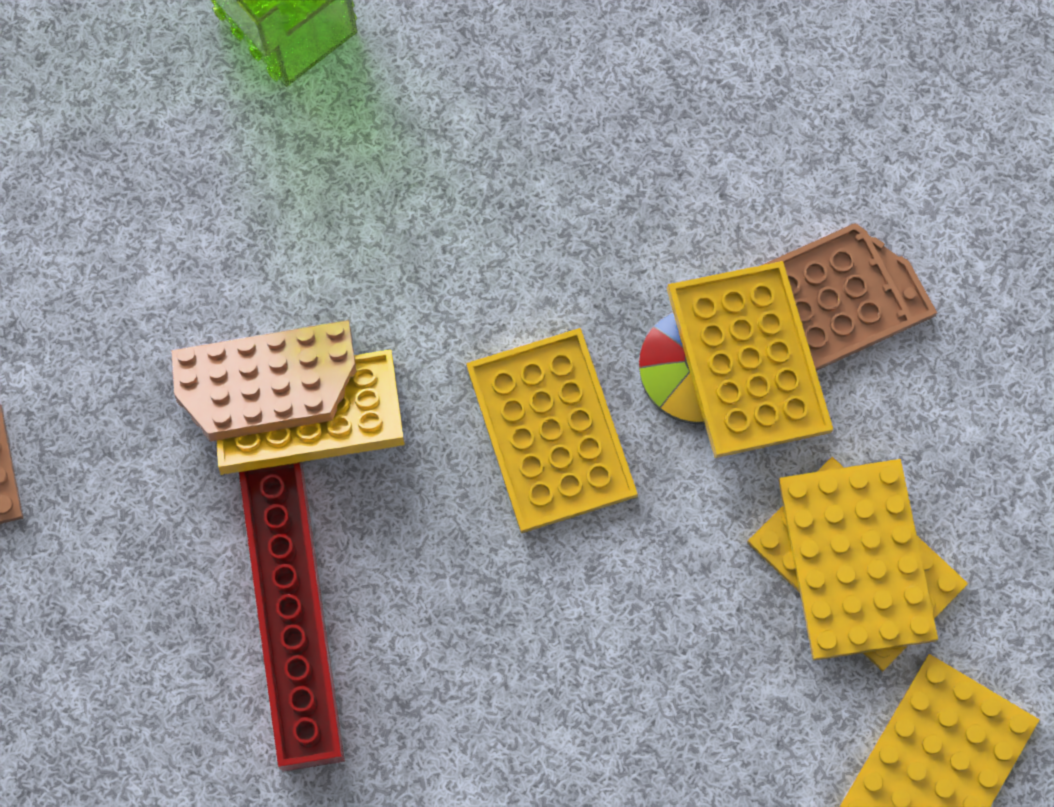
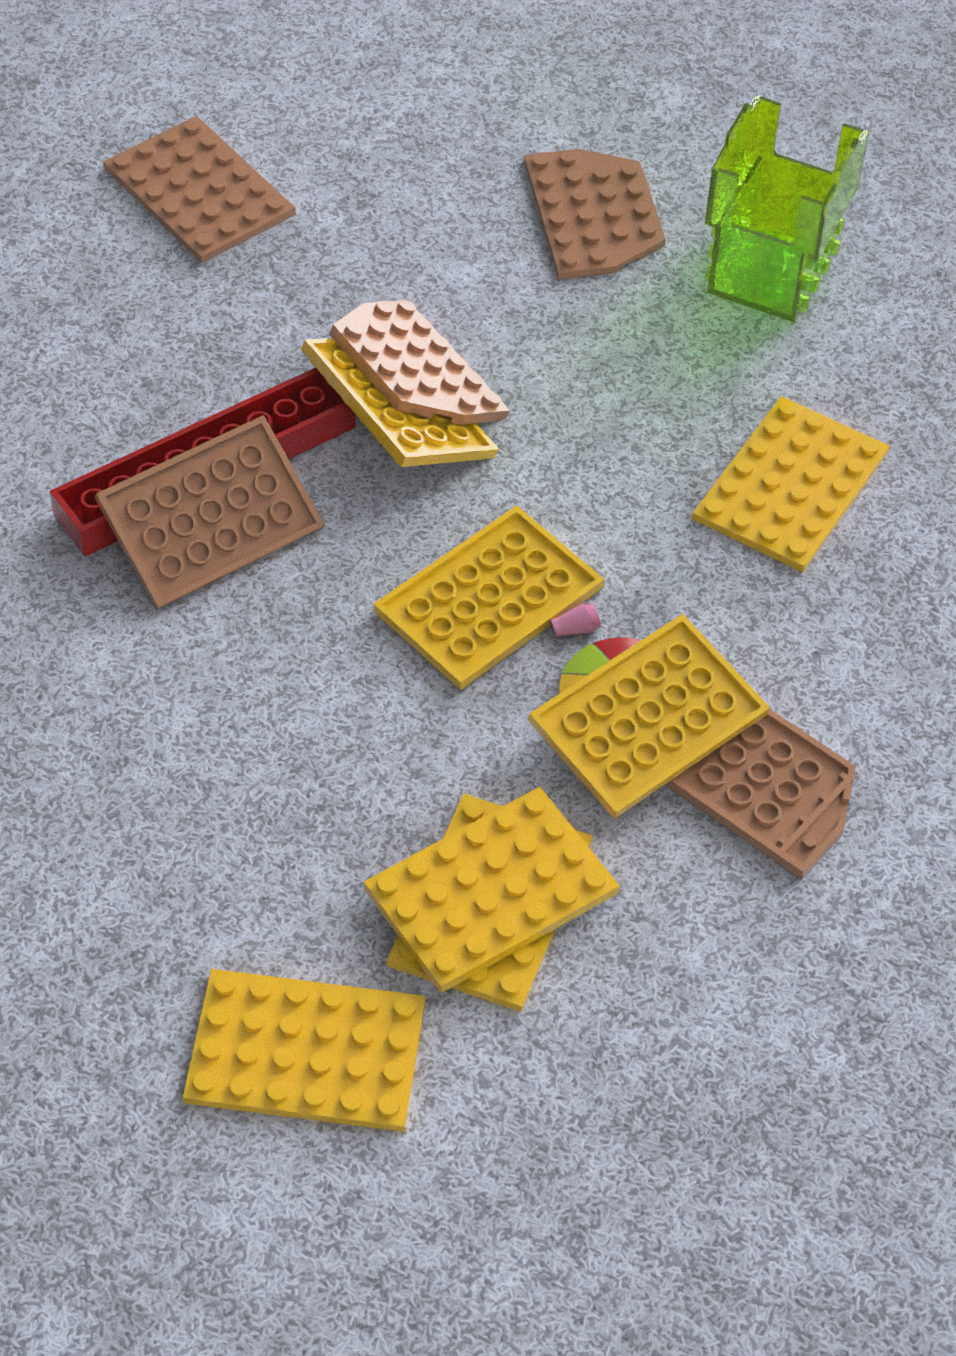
camera: 60 degrees right, 20 degrees down
(135, 136) = (593, 211): none -> nougat plate
(364, 631) = (209, 512): none -> nougat plate
(537, 125) = (791, 483): none -> yellow plate
(611, 369) = (577, 621): none -> bright pink cone

